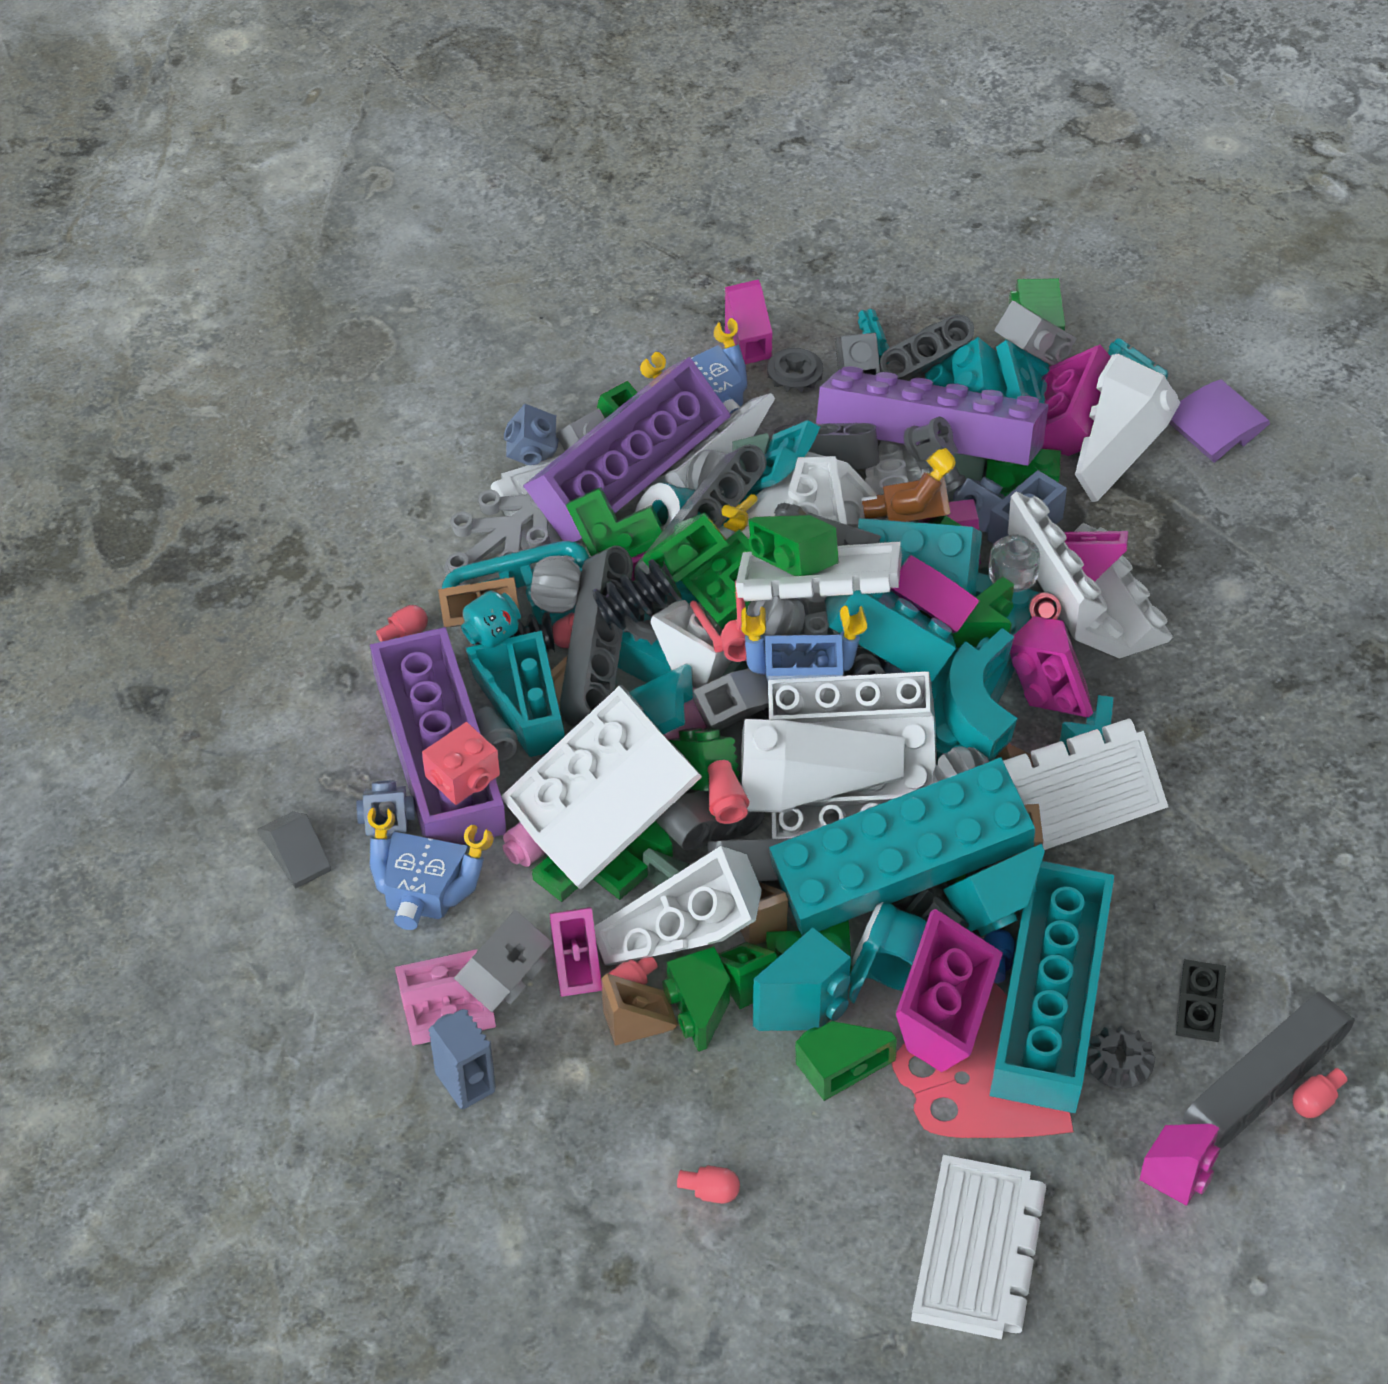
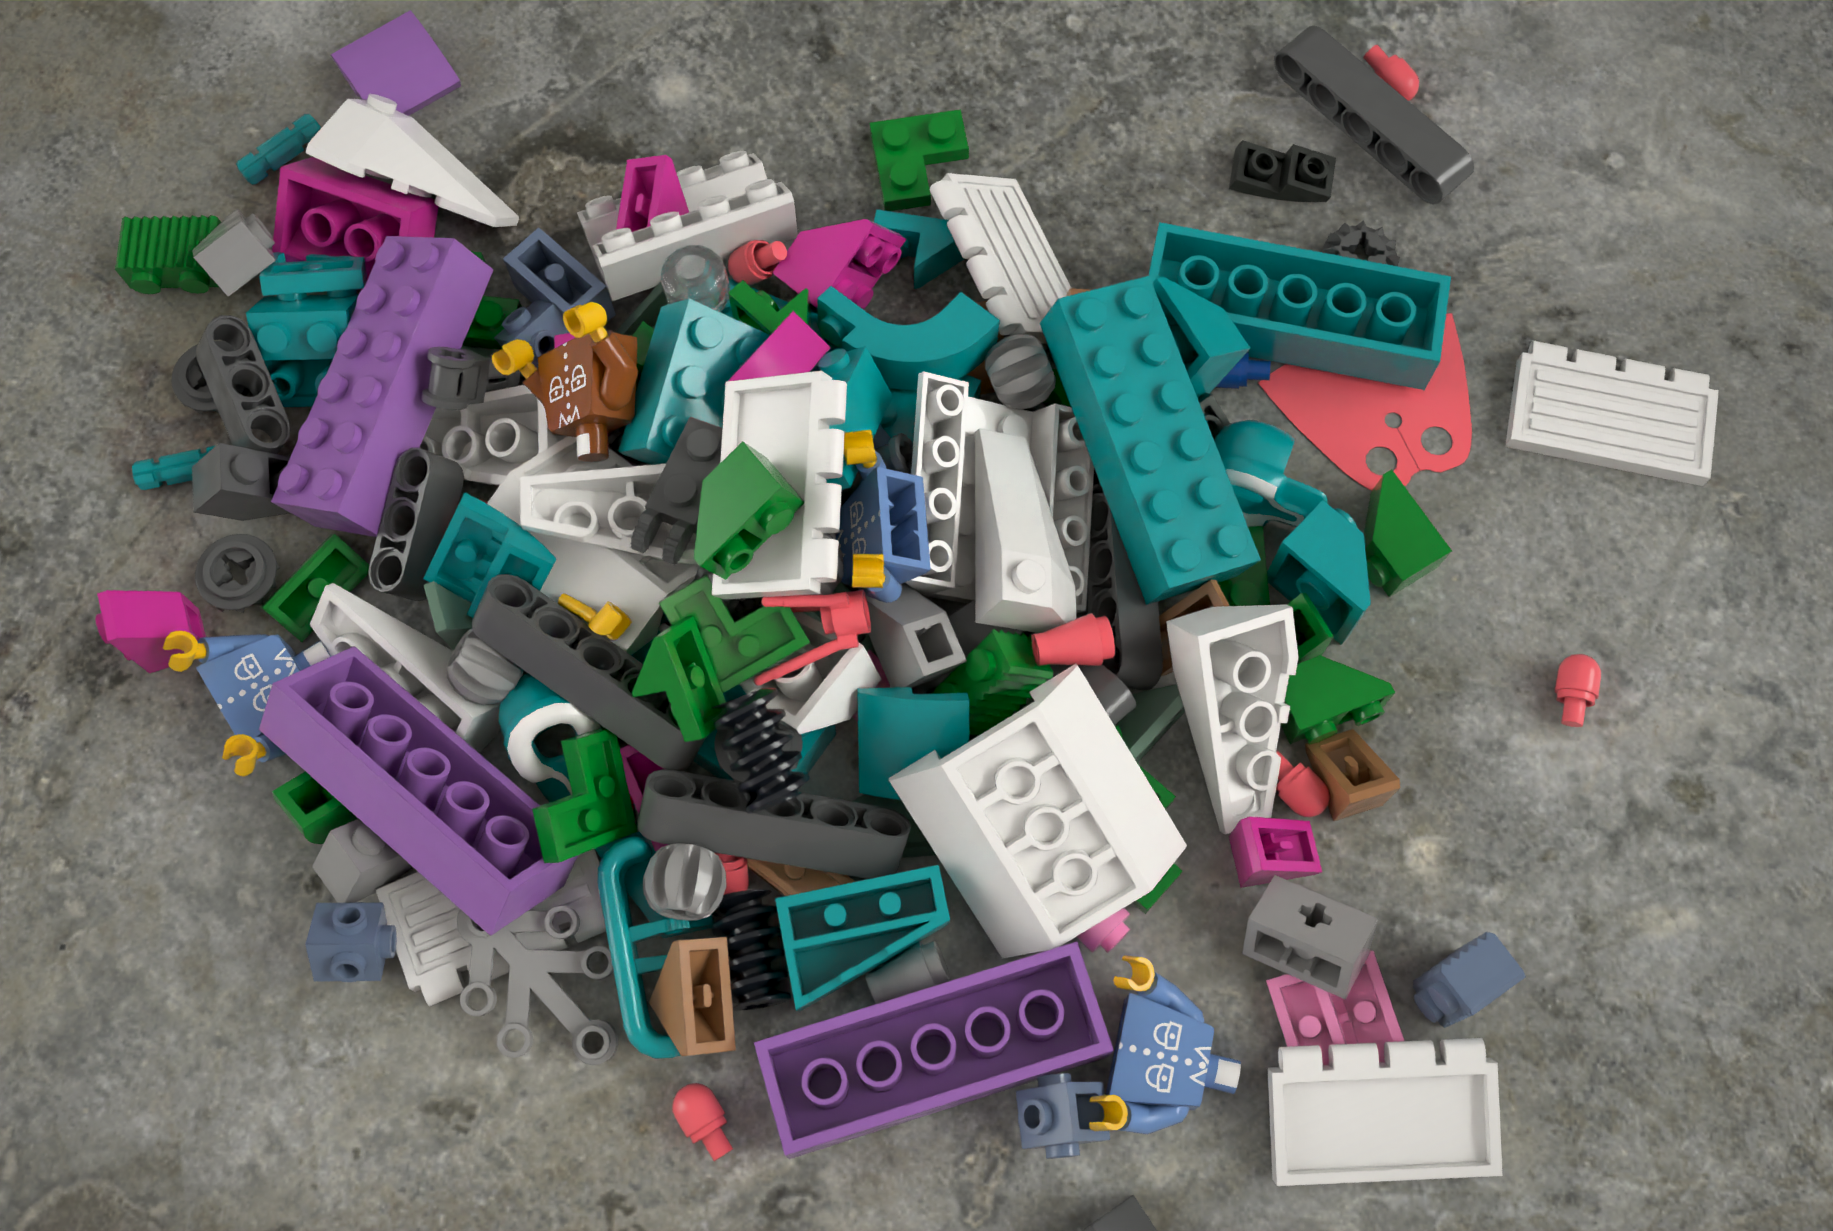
camera: 90 degrees left, 20 degrees up
(370, 1013) = (1384, 1117): none -> white hinge
(461, 763) = (1031, 995): coral head -> none
(490, 619) = (762, 969): teal head -> none
(786, 407) = (299, 595): none -> green slope
(946, 992) = (1331, 408): dark pink slope -> none
(1182, 1160) = (1510, 196): dark pink slope -> none
(1191, 734) = (909, 144): none -> green plate

